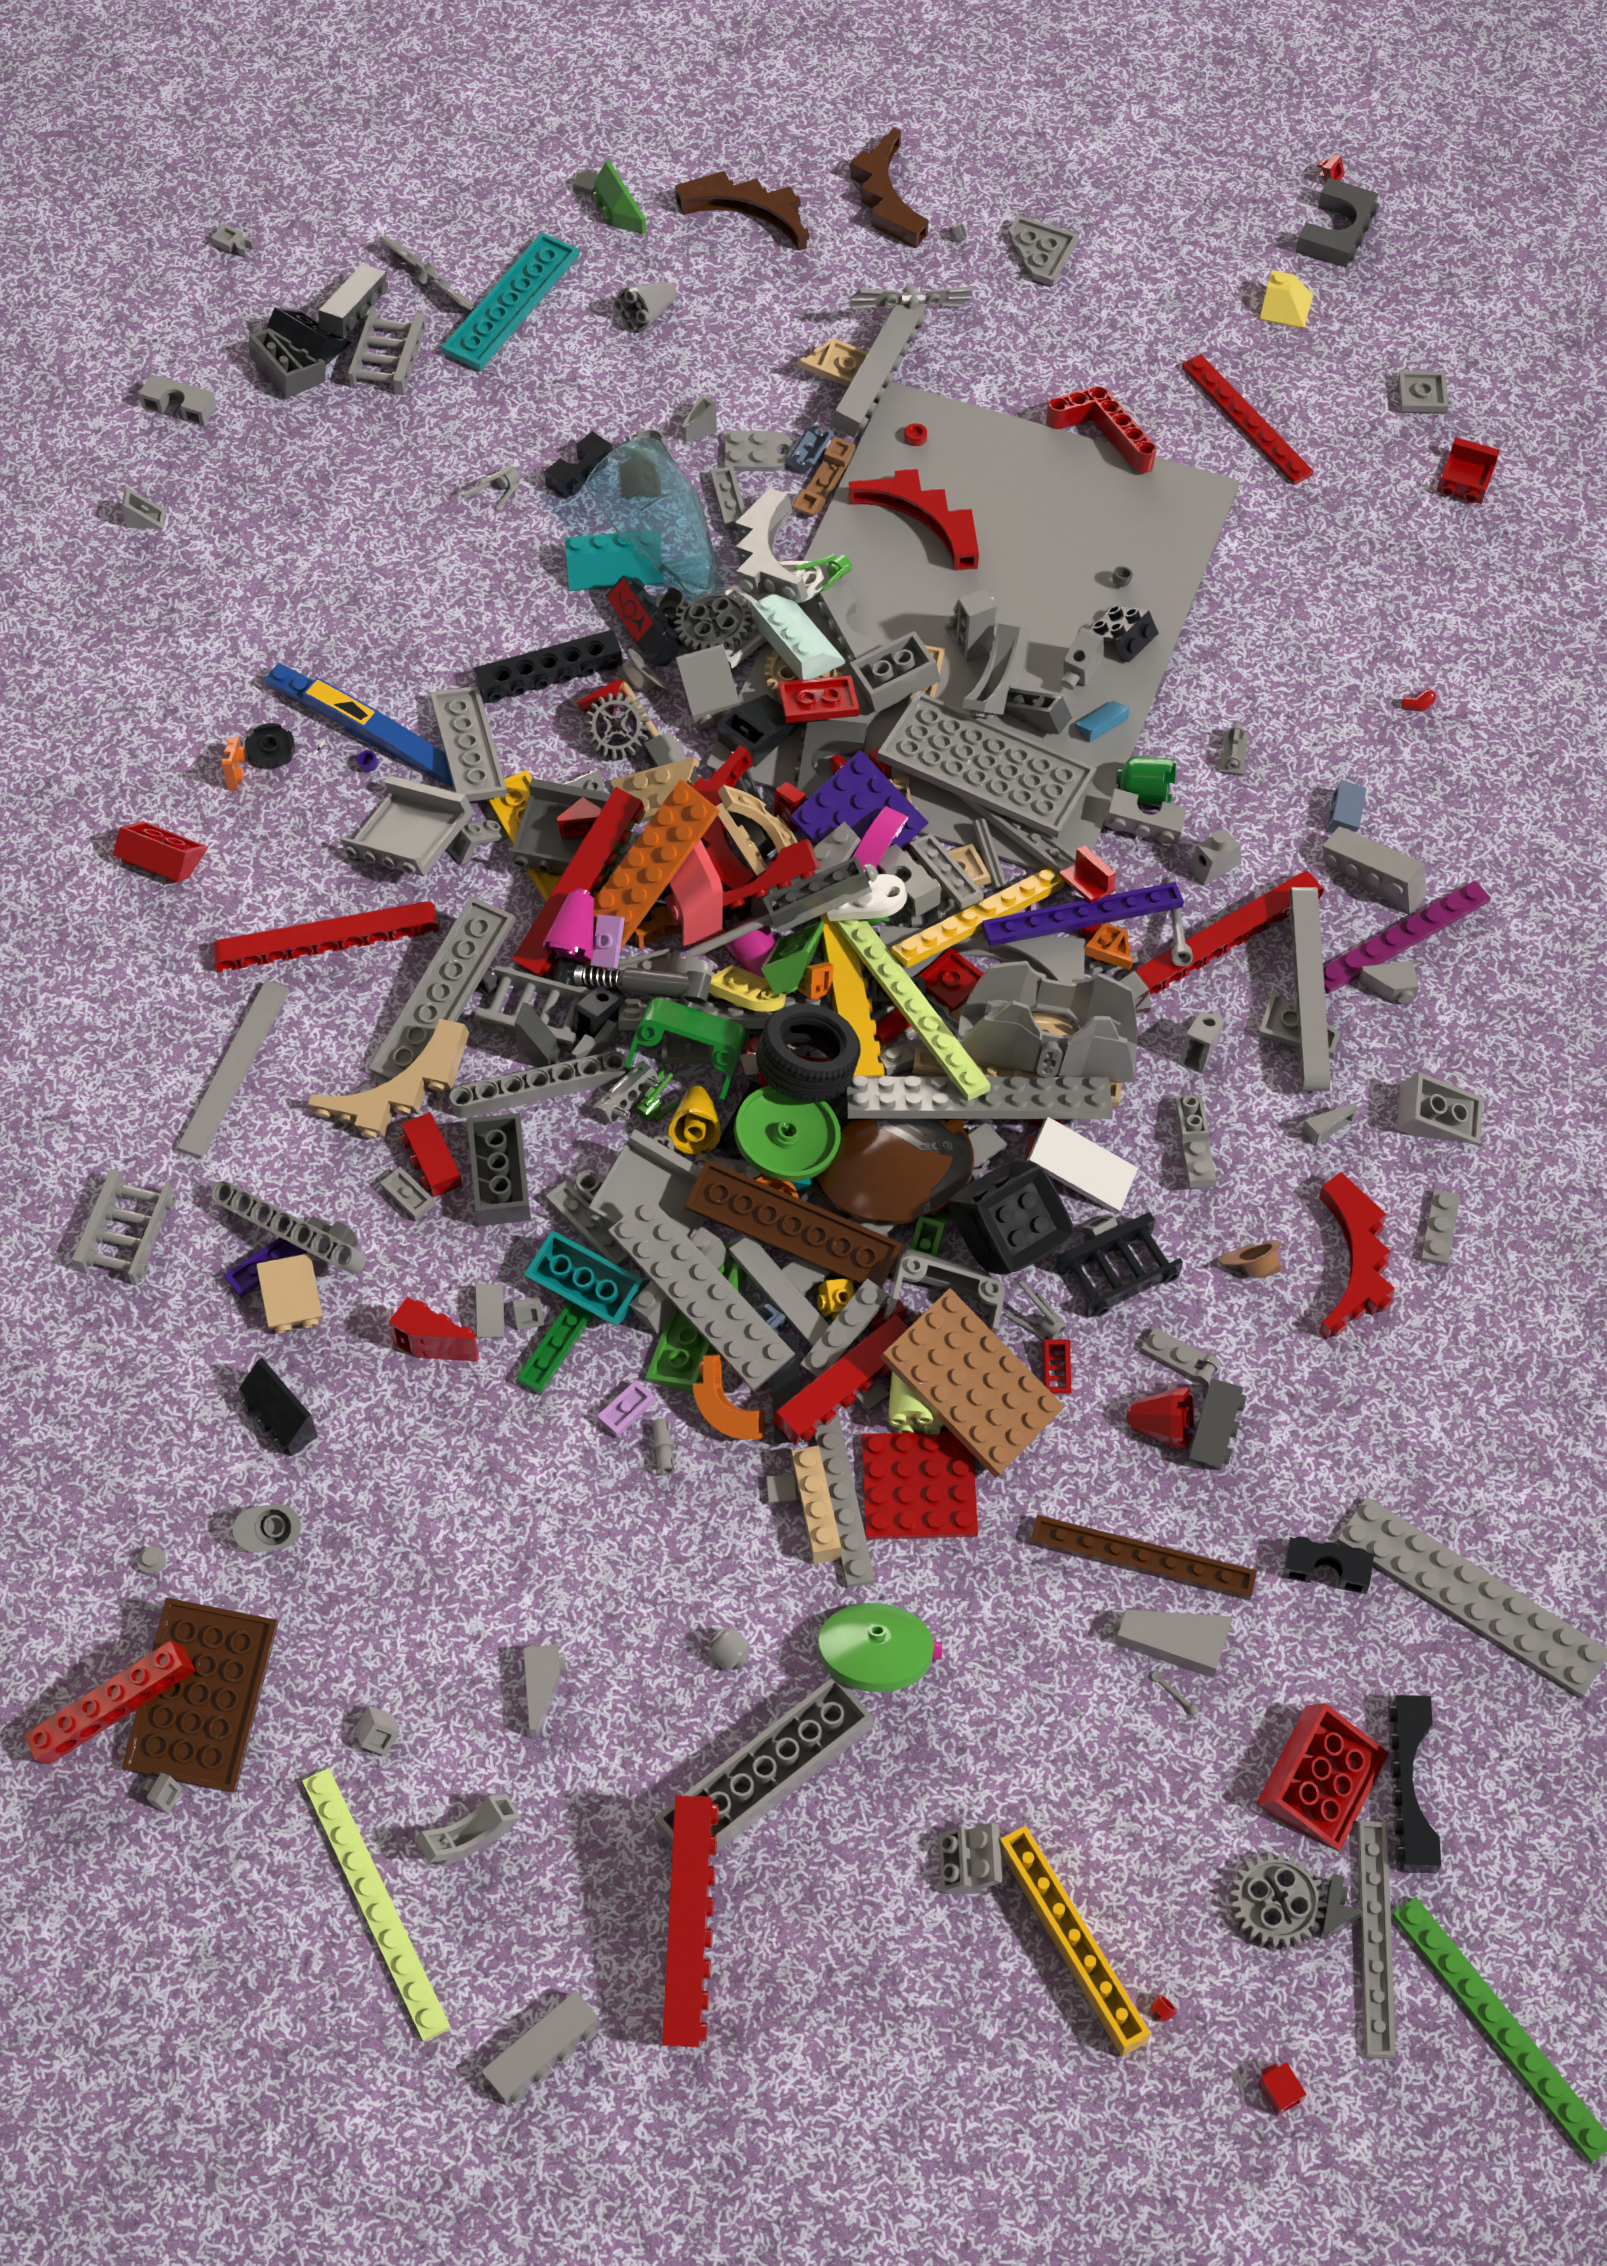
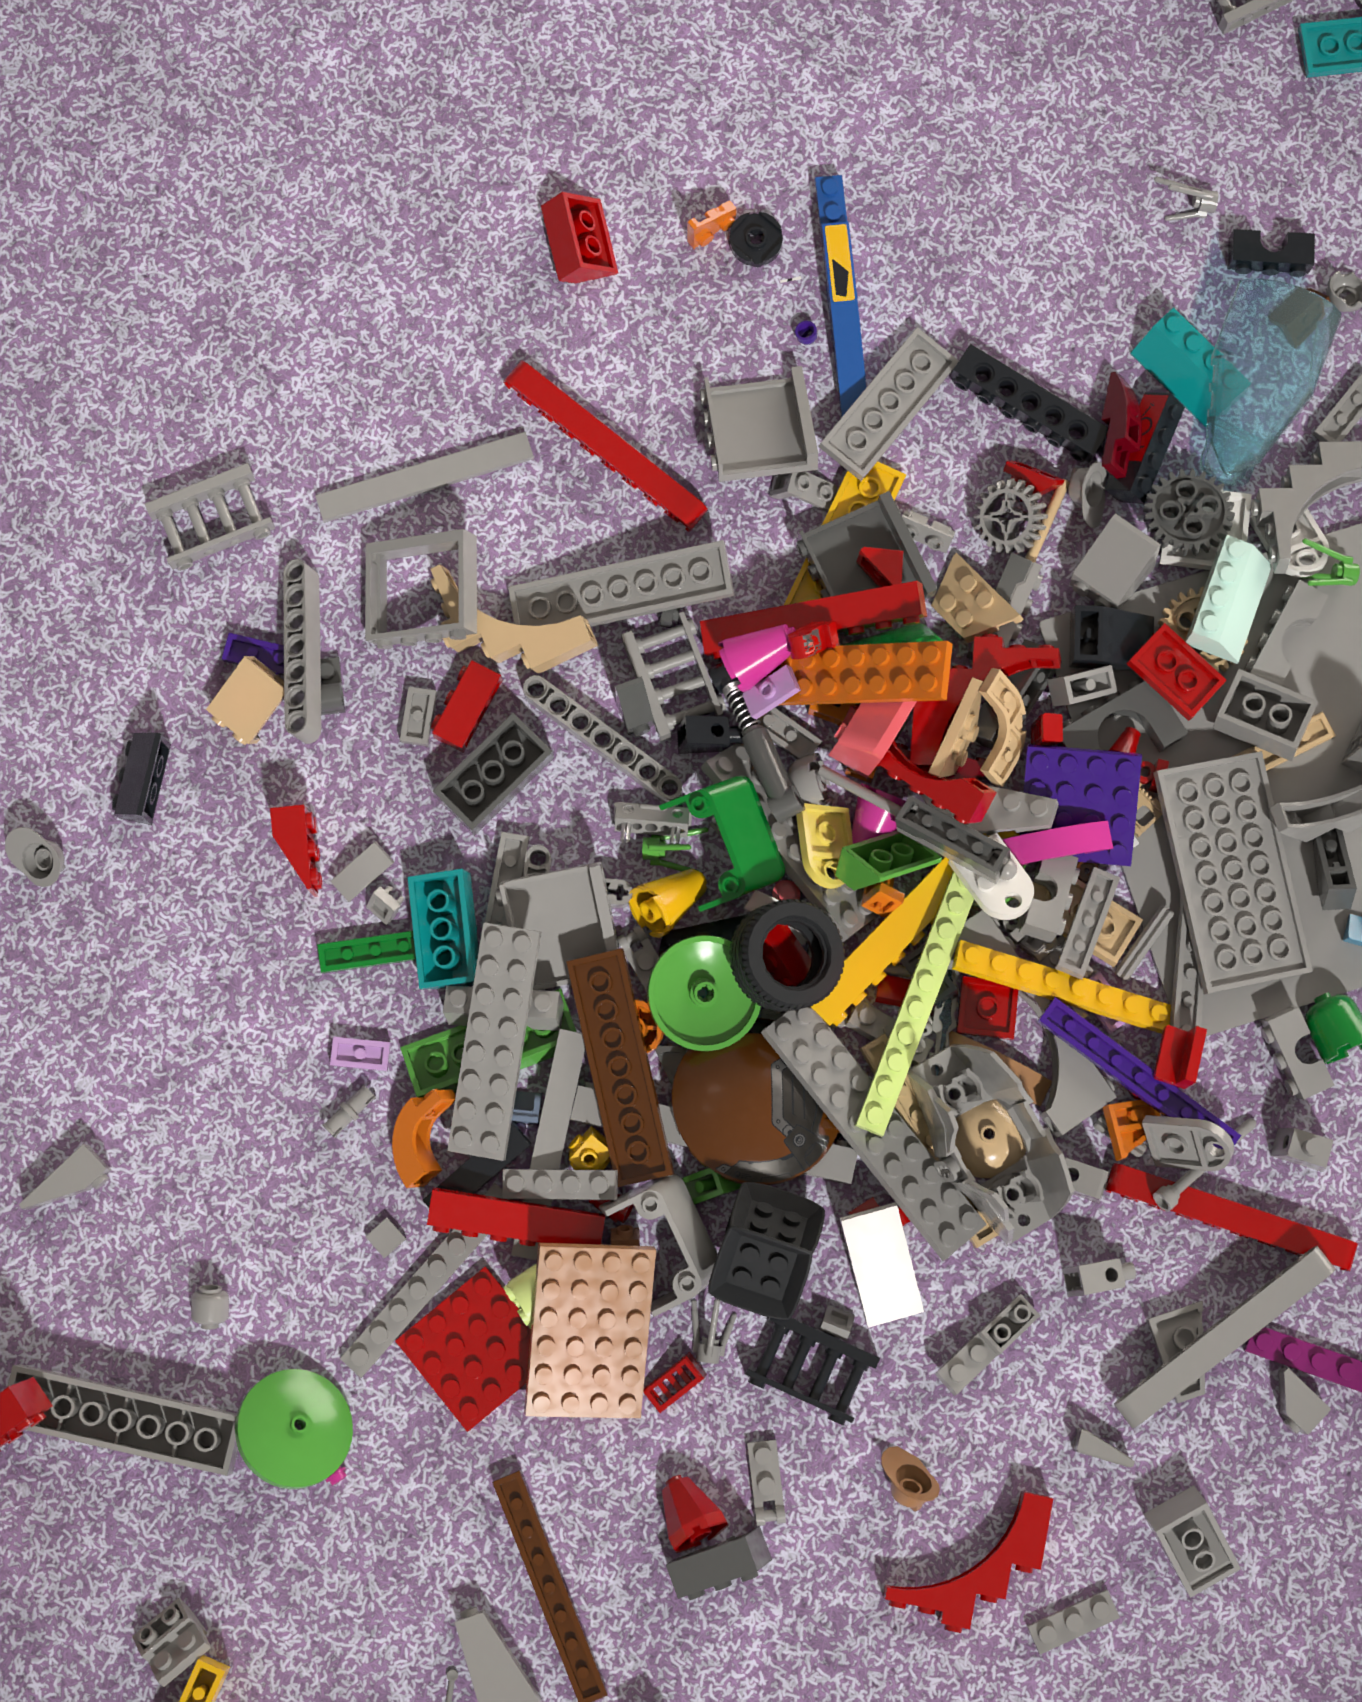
camera: 50 degrees right, 20 degrees up
(284, 1097) = (376, 587): none -> light grey window
(592, 1046) = (669, 753): light grey slope -> none
(597, 879) = (813, 639): none -> red leg
(616, 618) = (1125, 426): none -> dark red slope
(670, 603) = (1182, 455): dark grey hair -> none
(775, 764) = (1082, 685): none -> light grey slope
(816, 1504) = (388, 1279): tan arch -> none
(1153, 914) = (1187, 1143): none -> light grey plate

